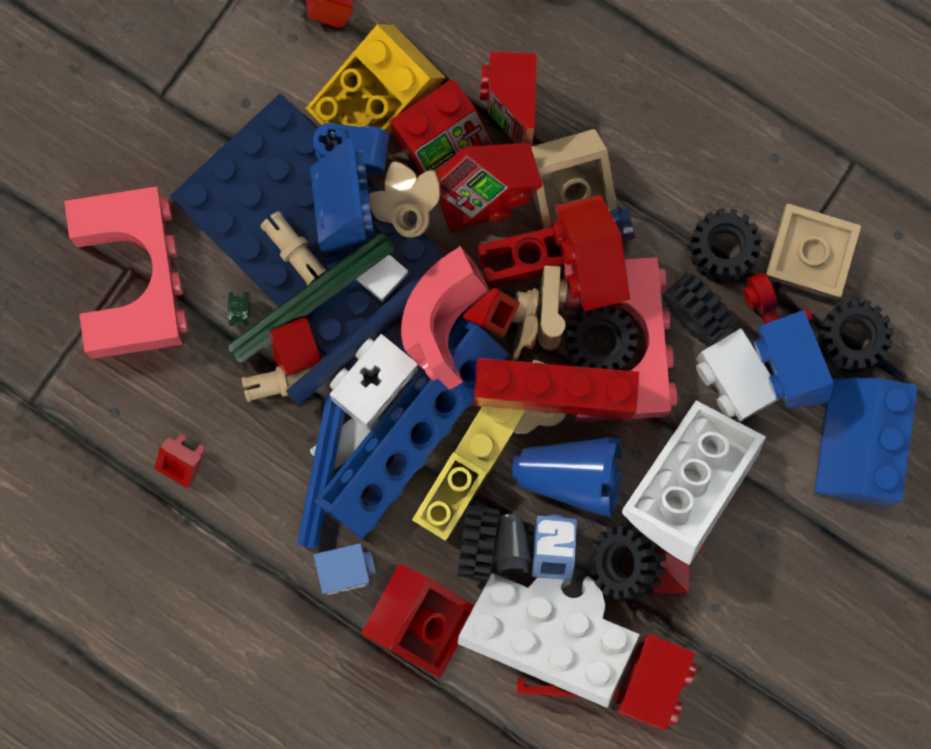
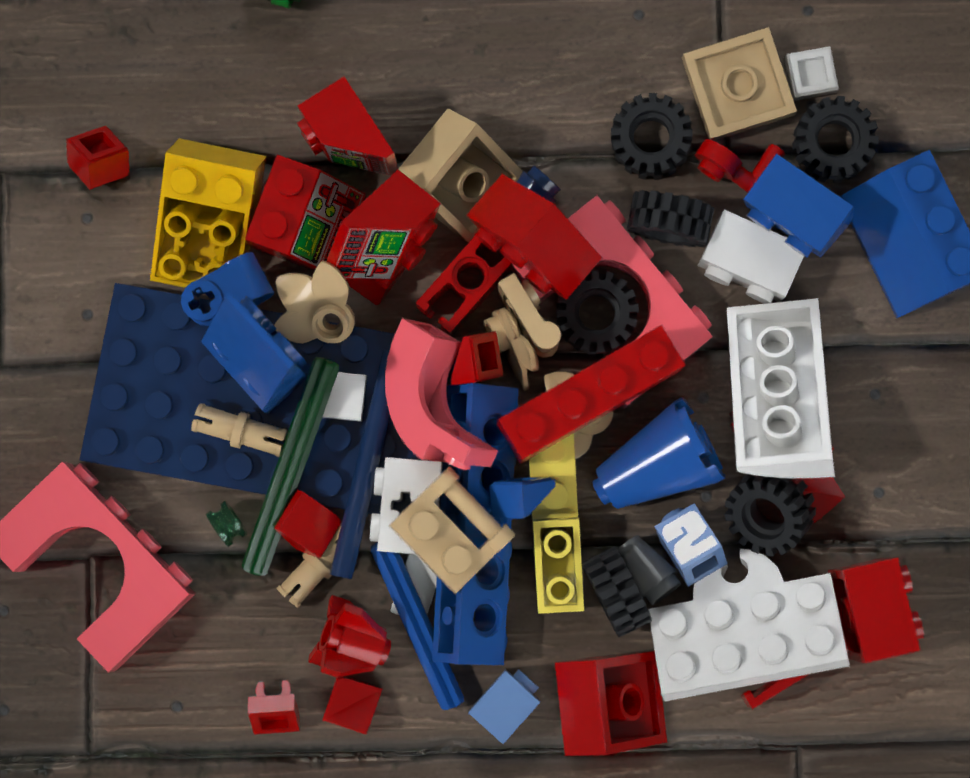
camera: 25 degrees left, 5 degrees up
(237, 494) = (352, 704): none -> red slope
(267, 448) = (349, 641): none -> red brick
(378, 418) = (440, 541): none -> tan plate
(455, 426) = (518, 496): none -> blue slope
(870, 279) = (811, 73): none -> white tile

